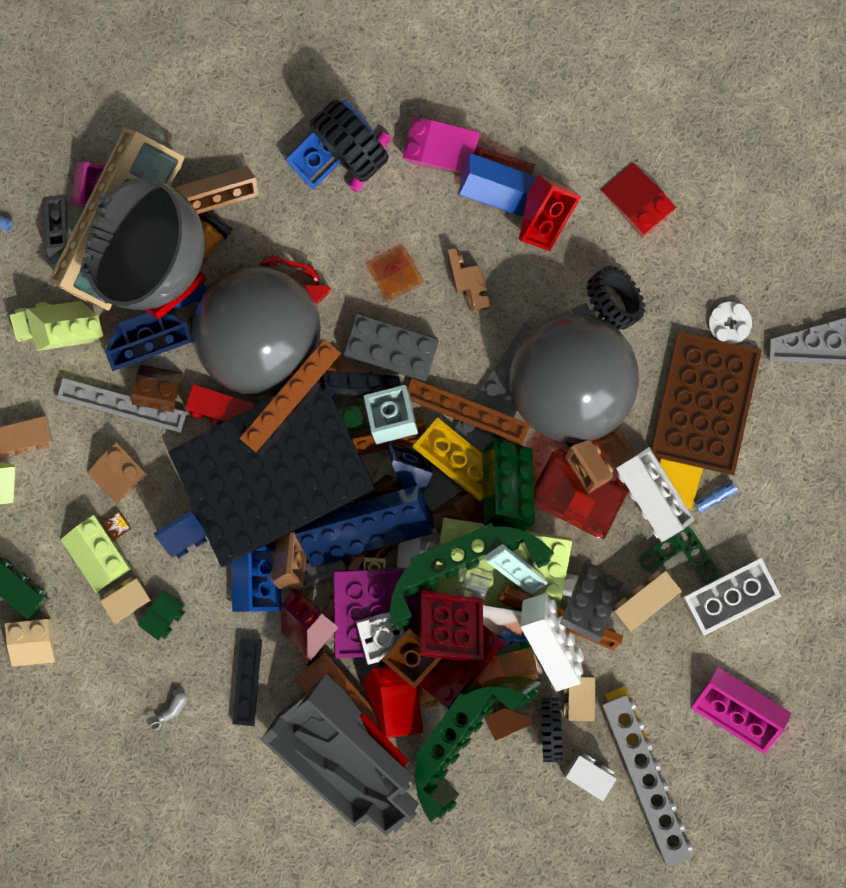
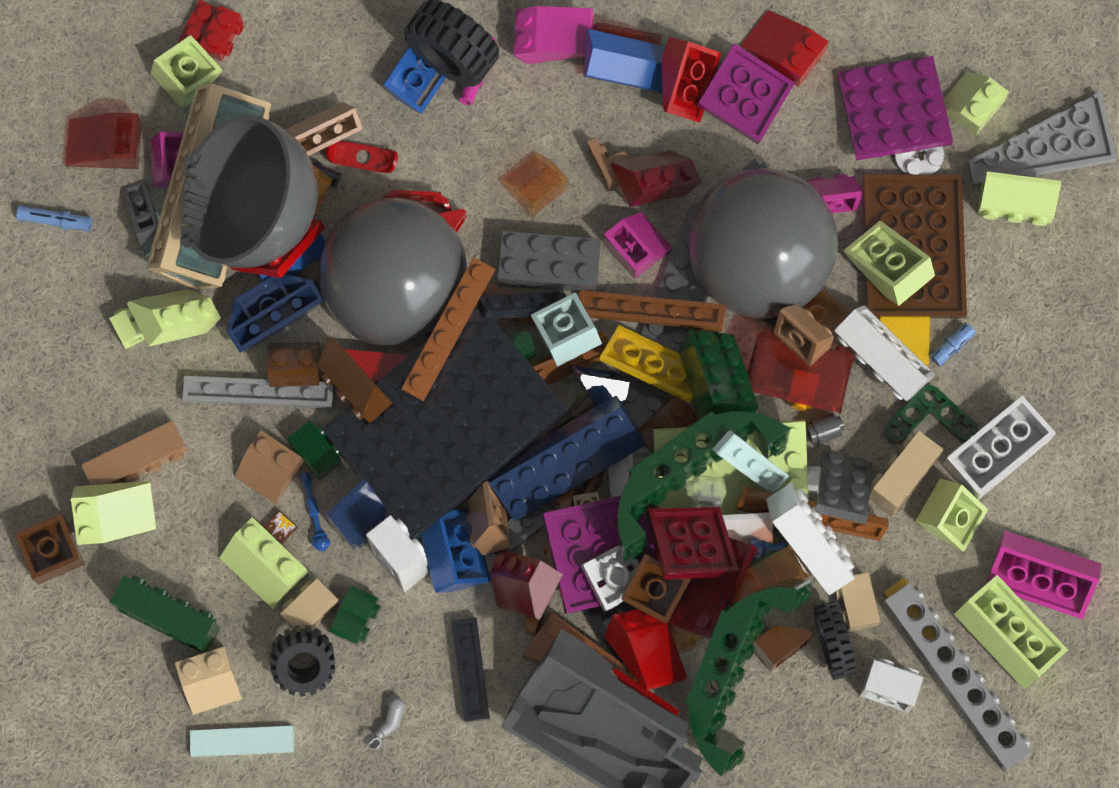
camera: 15 degrees left, 10 degrees down
(36, 155) = (104, 141): none -> clear red slope
(47, 697) = (241, 741): none -> light aqua tile
(109, 659) = (302, 679): none -> black tyre
(118, 108) = (184, 69): none -> yellowish green slope
(147, 544) = (320, 539): none -> blue piece
(149, 74) = (213, 29): none -> red plate
(158, 466) = (315, 451): none -> dark green brick
(200, 421) = (351, 382): none -> reddish brown slope
(206, 577) = (397, 553): none -> white brick
(269, 223) = (345, 154): none -> red piece
(470, 348) = (636, 244): none -> dark pink slope
(498, 294) = (655, 177): none -> dark red slope
(589, 546) = (824, 428): none -> dark grey brick
(594, 235) = (745, 94): none -> magenta plate
(626, 290) = (786, 148): black tyre -> none
(648, 343) = (840, 192): none -> dark pink slope
(678, 642) = (952, 514): none -> yellowish green slope
(680, 415) = (890, 262): none -> yellowish green slope
(701, 753) = (1010, 632): none -> yellowish green slope
(719, 277) = (894, 108): none -> magenta plate
(788, 286) = (974, 101): none -> yellowish green slope
(803, 384) = (1018, 198): none -> yellowish green slope

